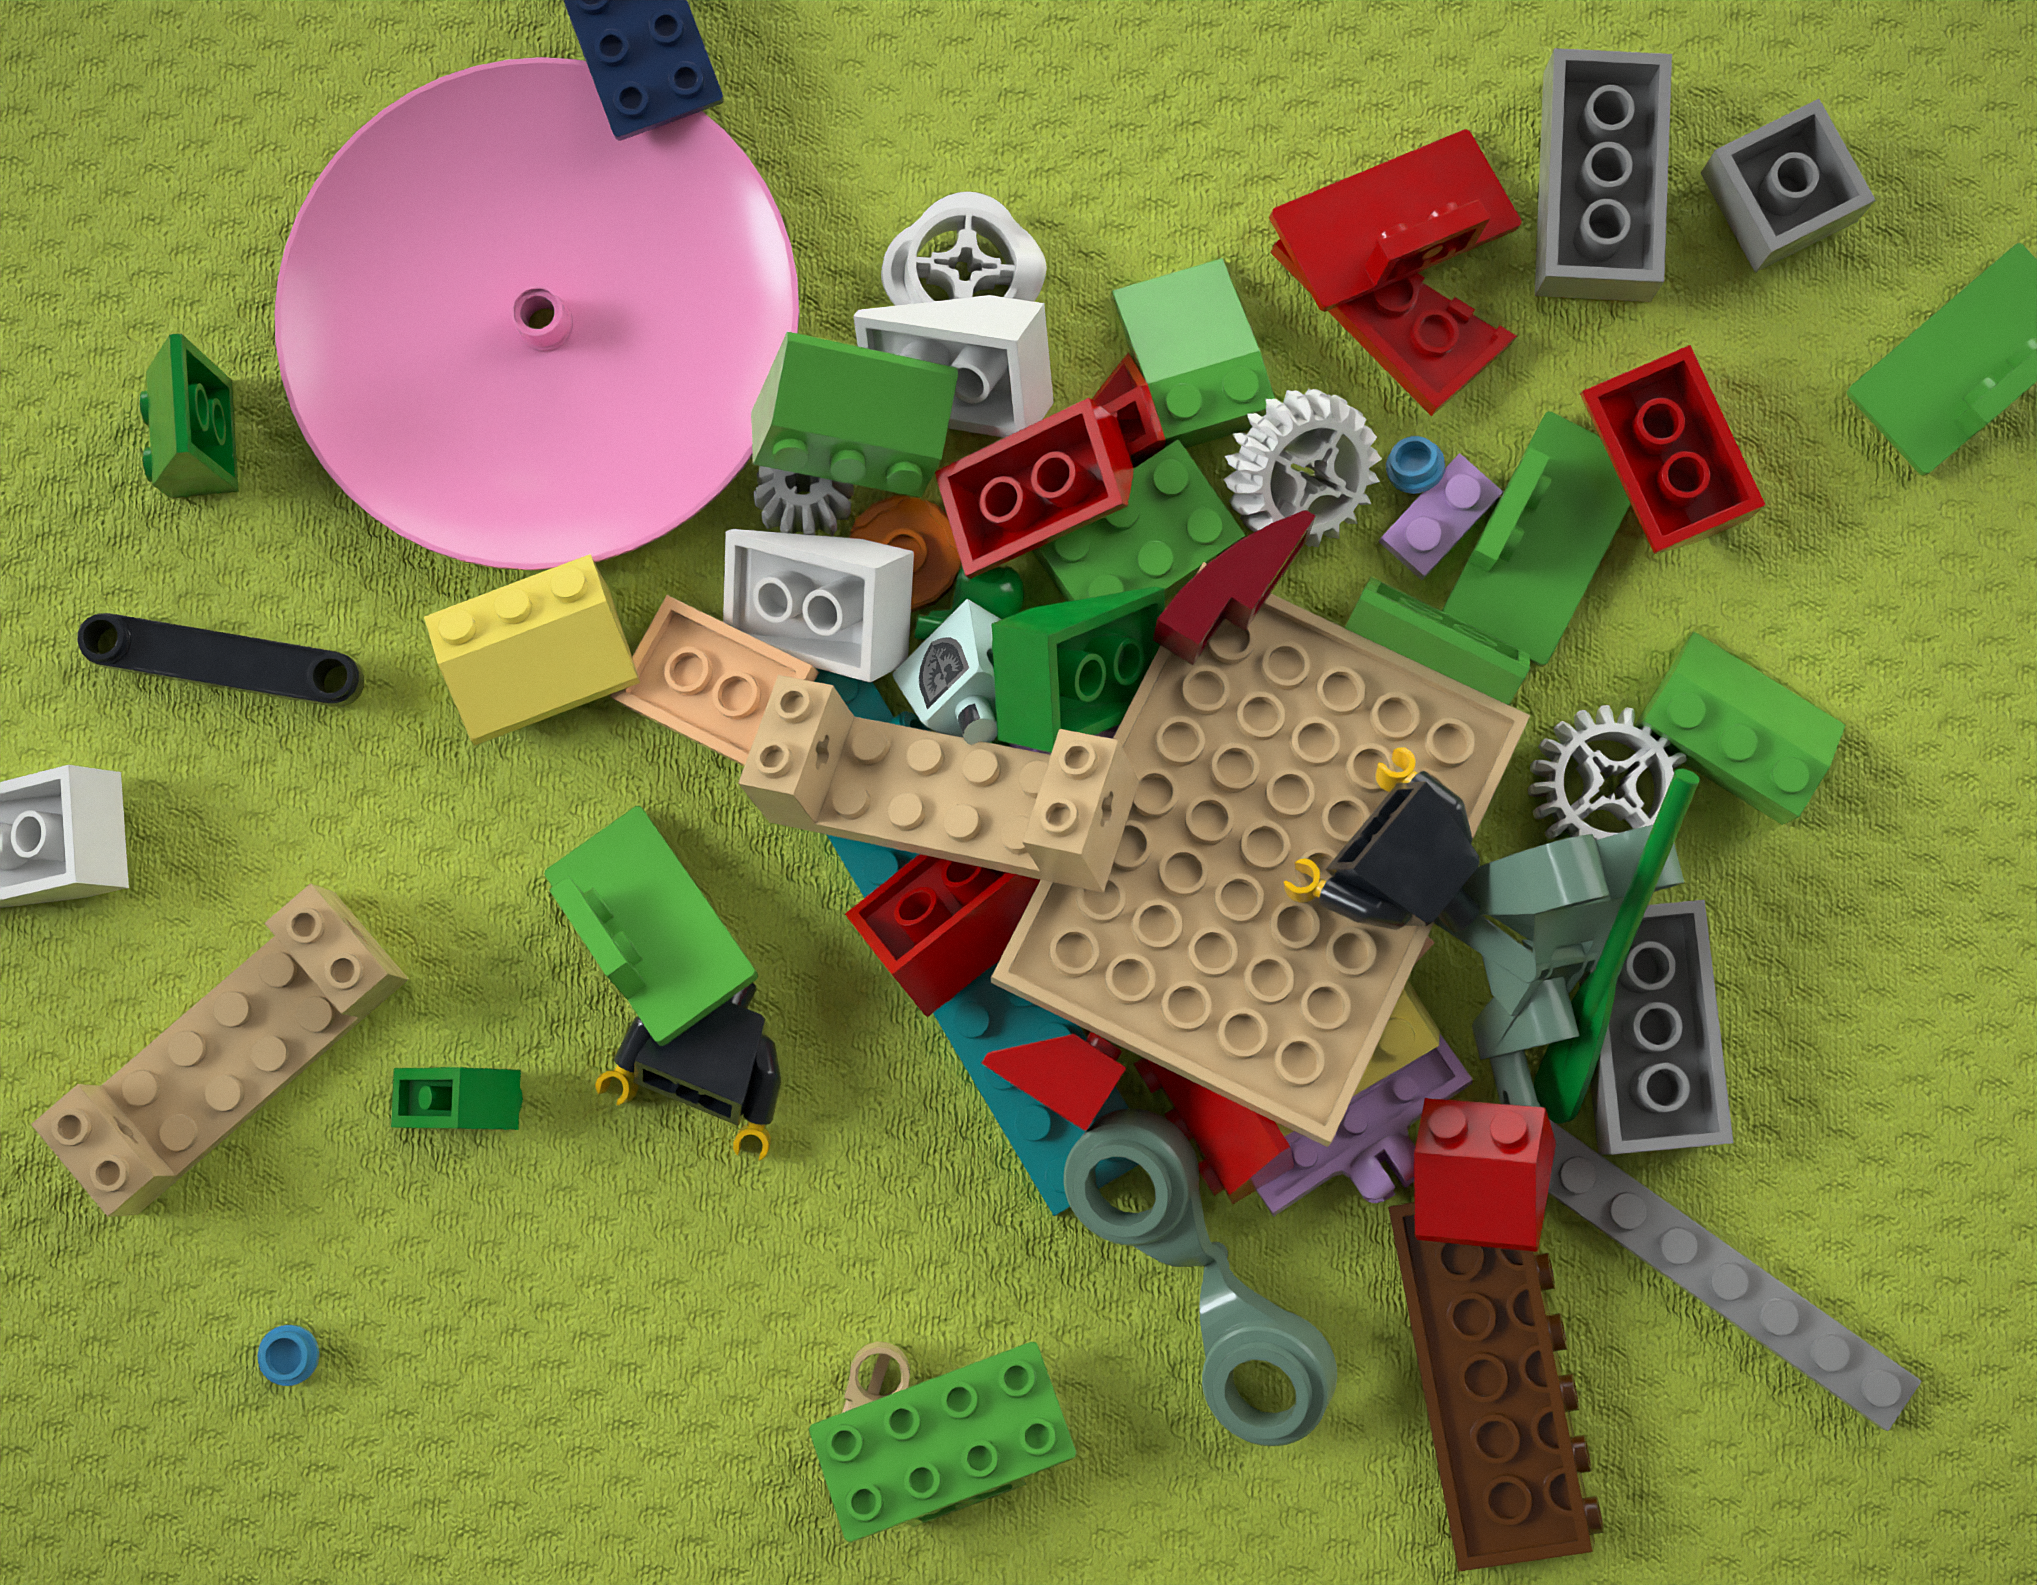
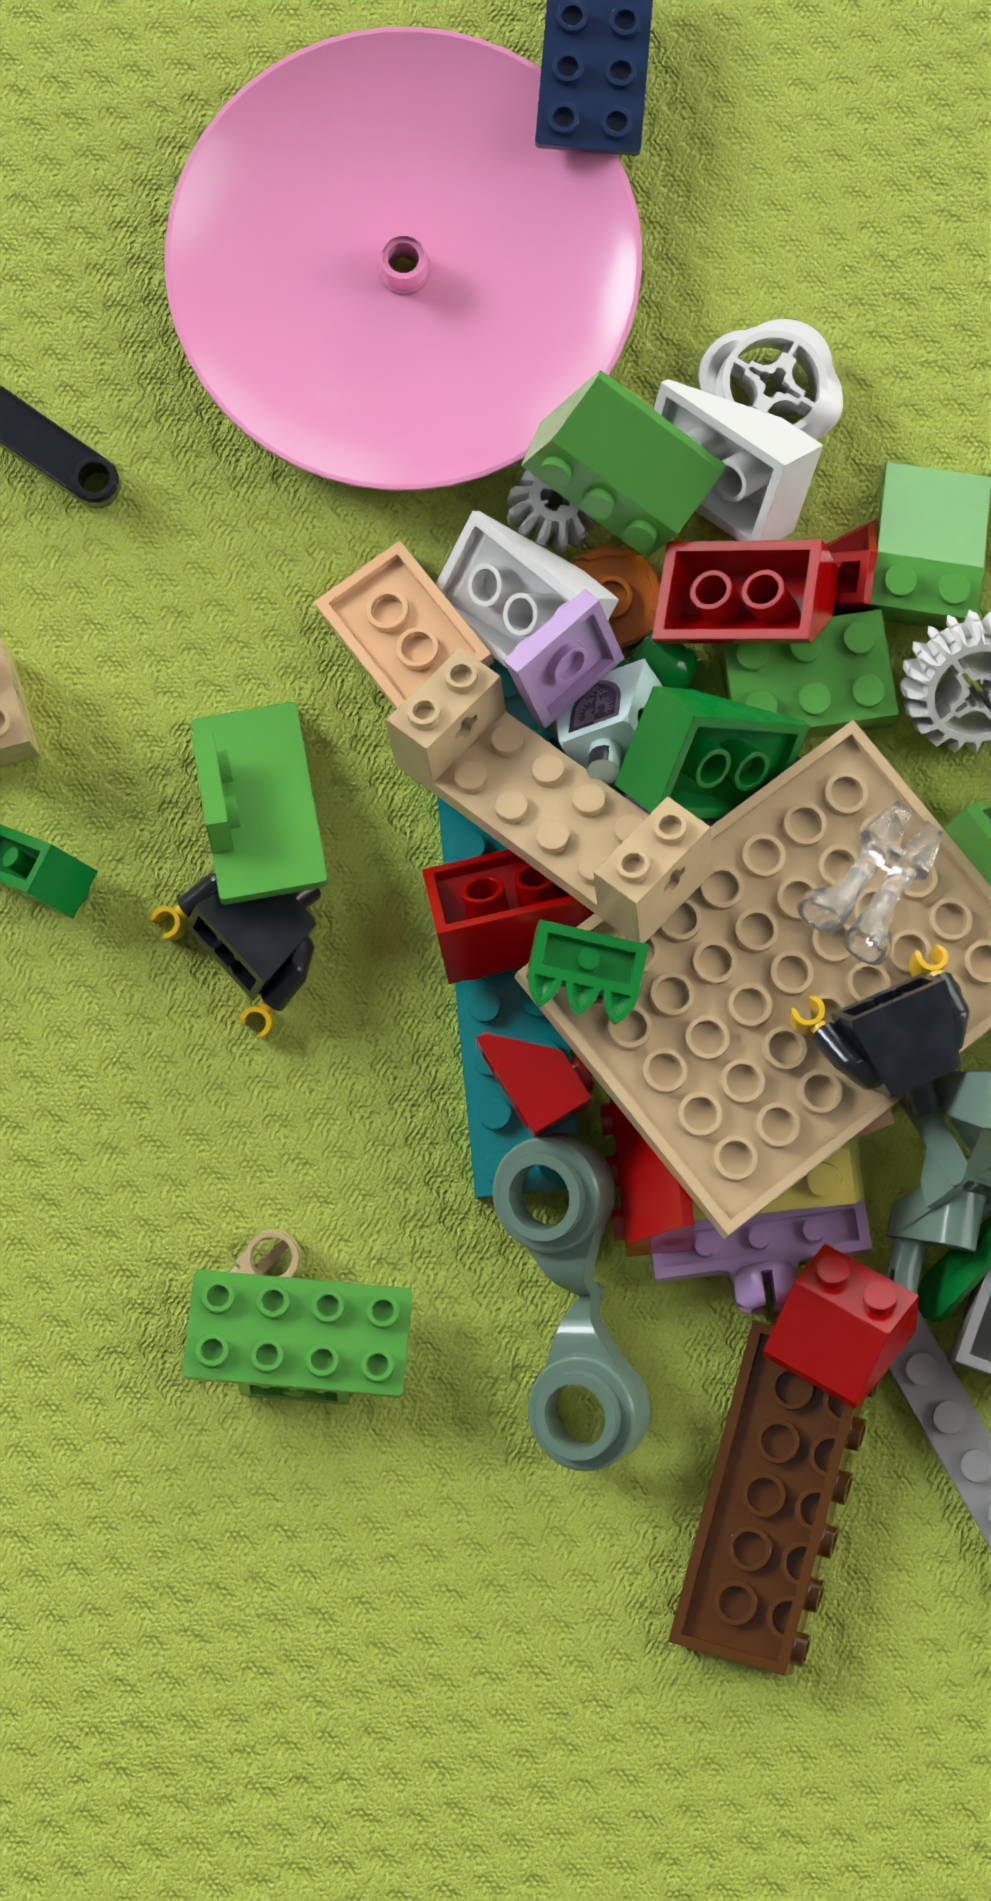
camera: 20 degrees right, 0 degrees up
(189, 423) = (75, 216): green slope -> none
(532, 649) = (268, 533): light yellow slope -> none
(887, 636) = (564, 658): none -> lavender plate
(1059, 939) = (587, 967): none -> green plate
(1231, 586) = (866, 749): dark red slope -> none
(1275, 761) = (831, 906): none -> clear piece

